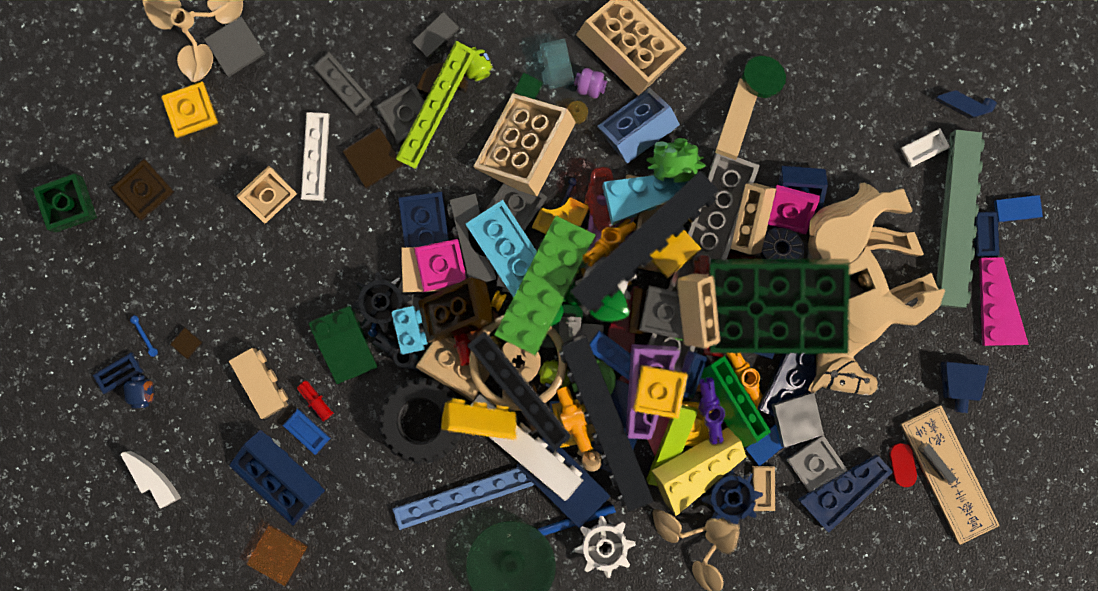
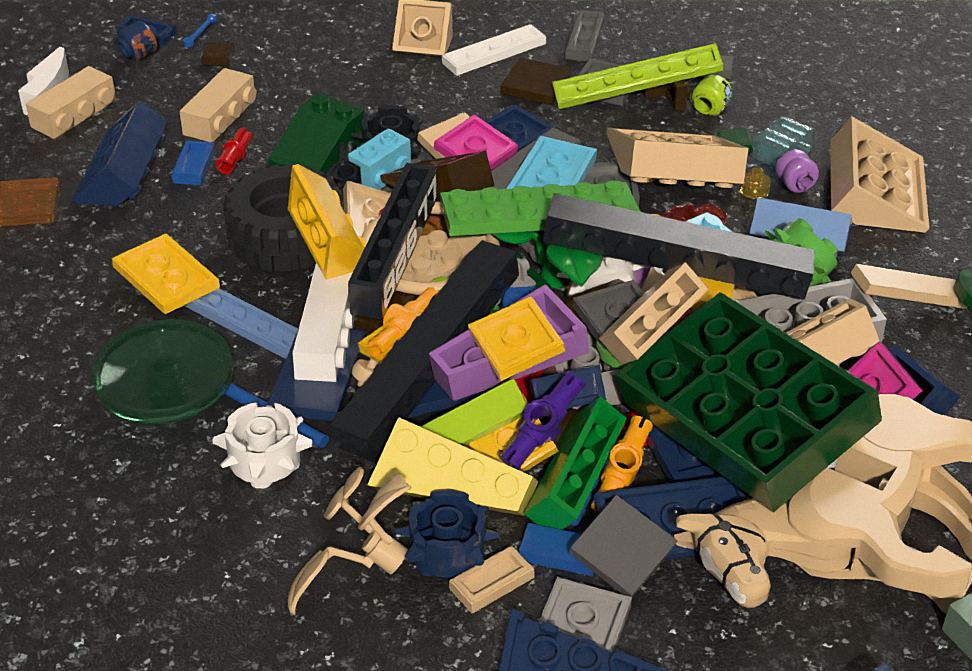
camera: 55 degrees right, 45 degrees down
(186, 474) = (71, 102): none -> tan brick
(418, 515) = (165, 273): none -> yellow tile

